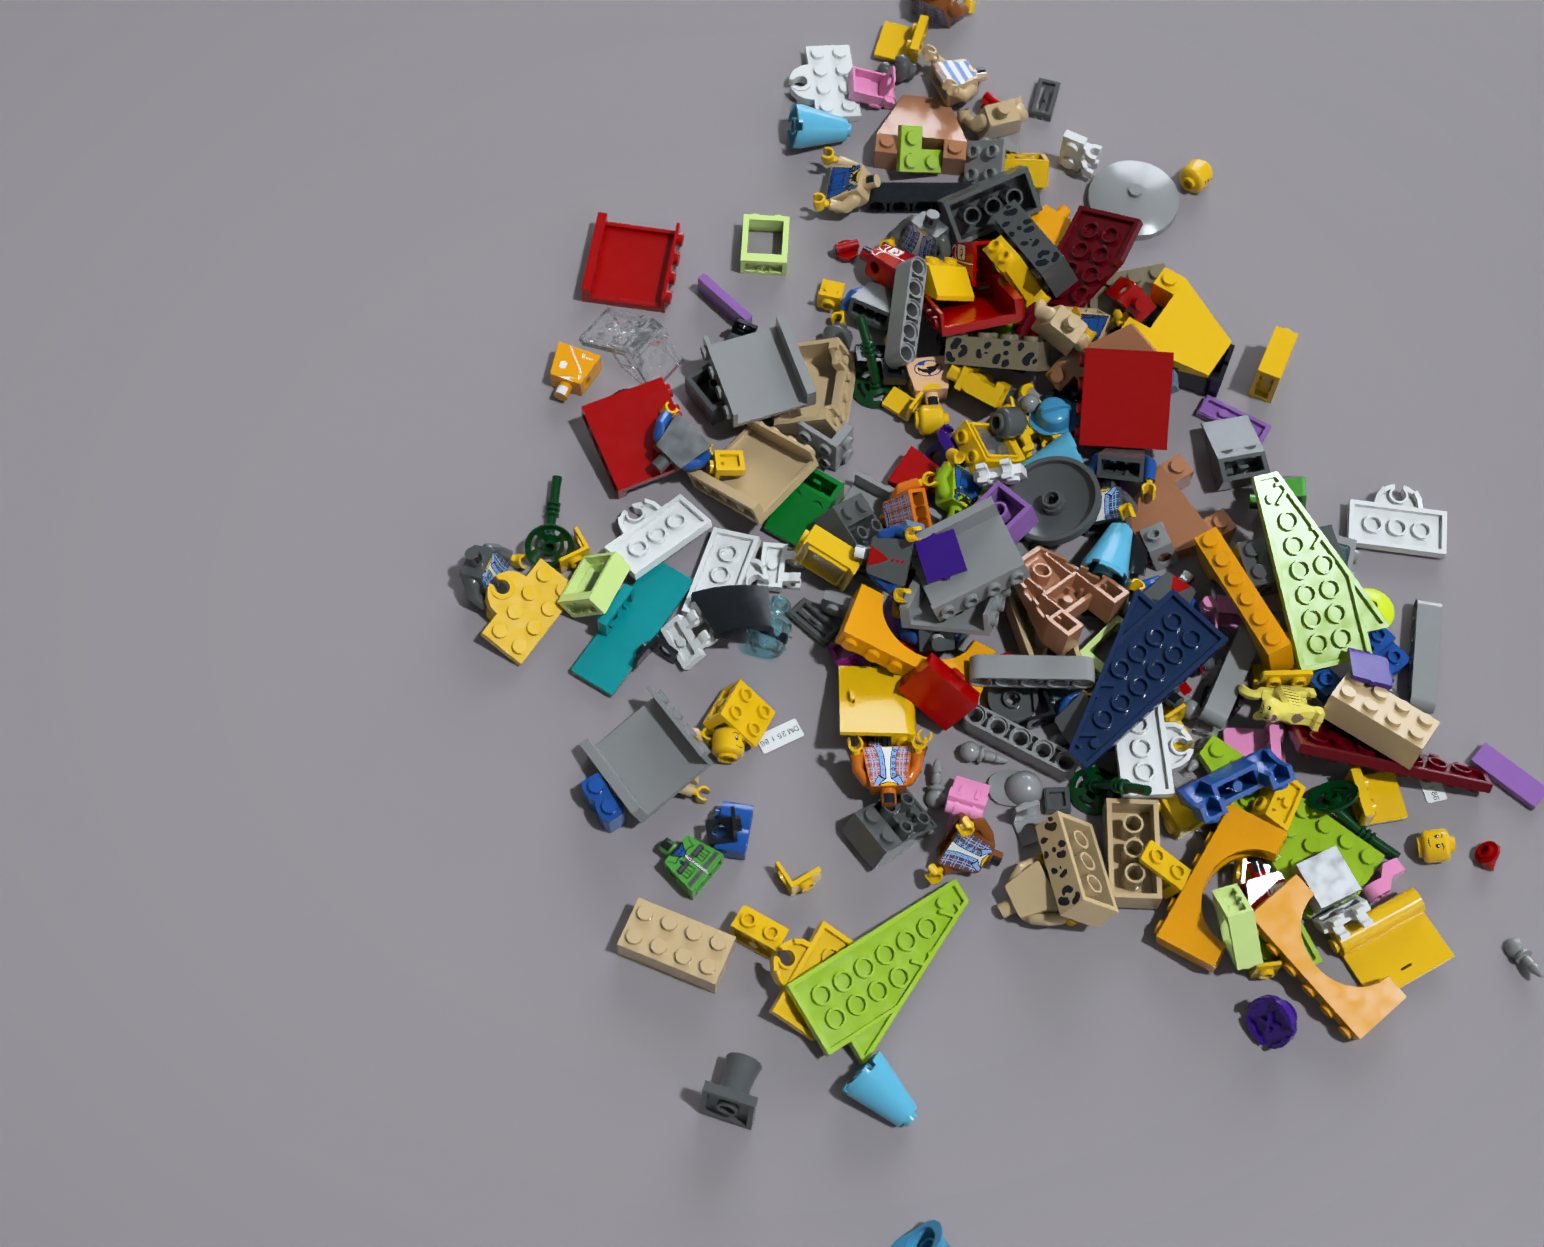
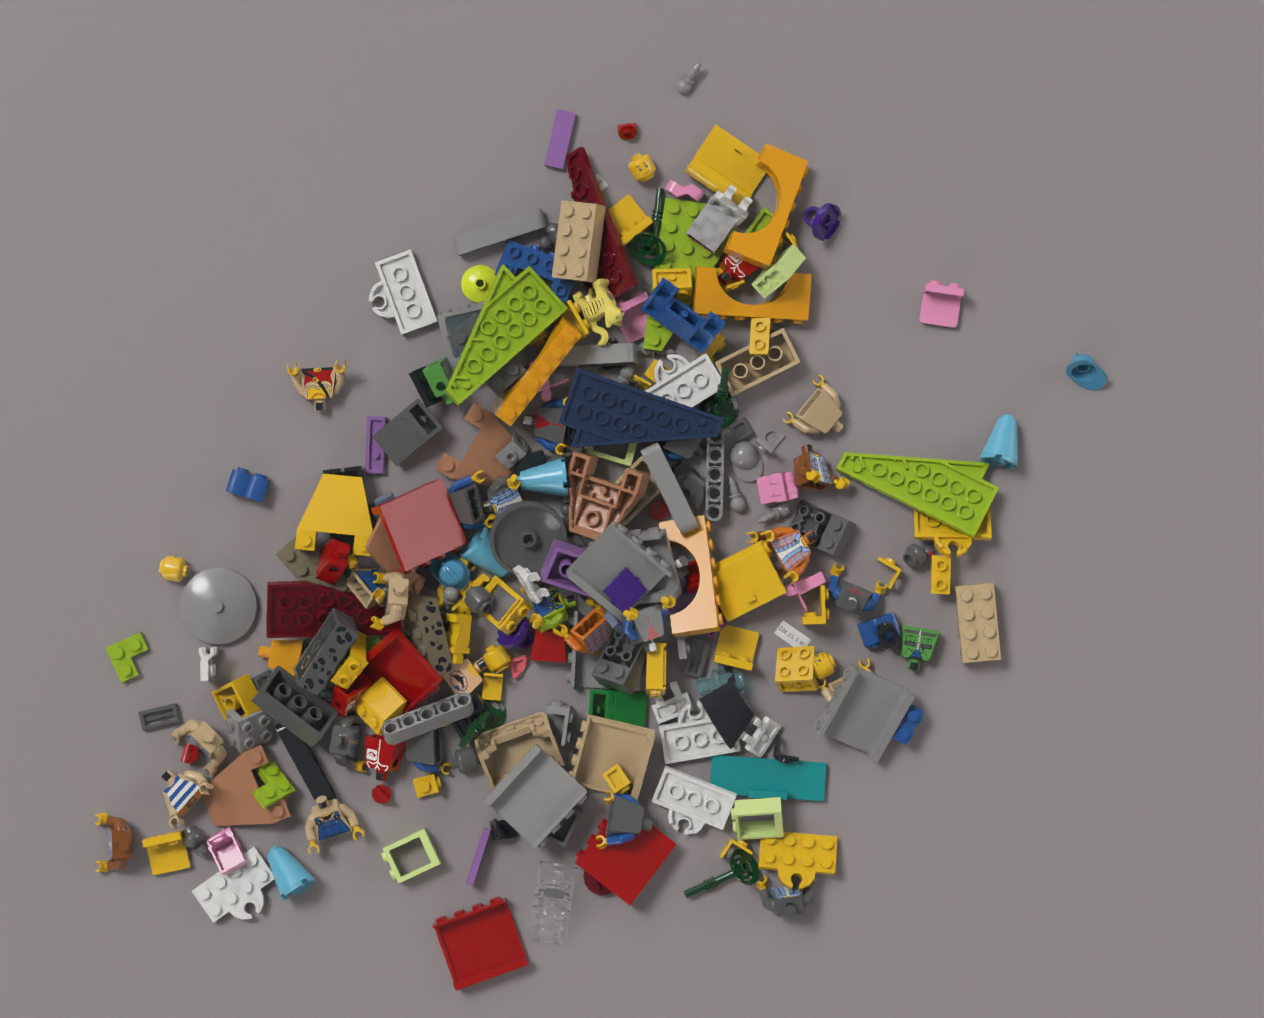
camera: 115 degrees left, 25 degrees up
(573, 370) = (595, 933): light orange torso -> none
(731, 1098) = (1051, 535): dark grey plant -> none
(789, 817) = (852, 596): none -> torso
(793, 773) = (812, 617): none -> yellow bracket
(797, 917) = (916, 555): none -> dark grey animal
(800, 664) = (736, 647): none -> yellow bracket
(835, 769) = (803, 585): none -> bright pink piece
(909, 438) = (518, 665): none -> coral tile
(939, 691) = (716, 543): red container -> none
(1076, 869) = (793, 392): tan brick -> none
(1097, 1112) = (941, 304): none -> bright pink bracket
(1128, 96) = (122, 653): none -> lime plate
(1251, 280) = (248, 485): none -> blue brick
(1273, 364) = (318, 436): yellow window -> none
(1335, 392) = (318, 383): none -> torso
(1369, 668) = (545, 264): piece -> none

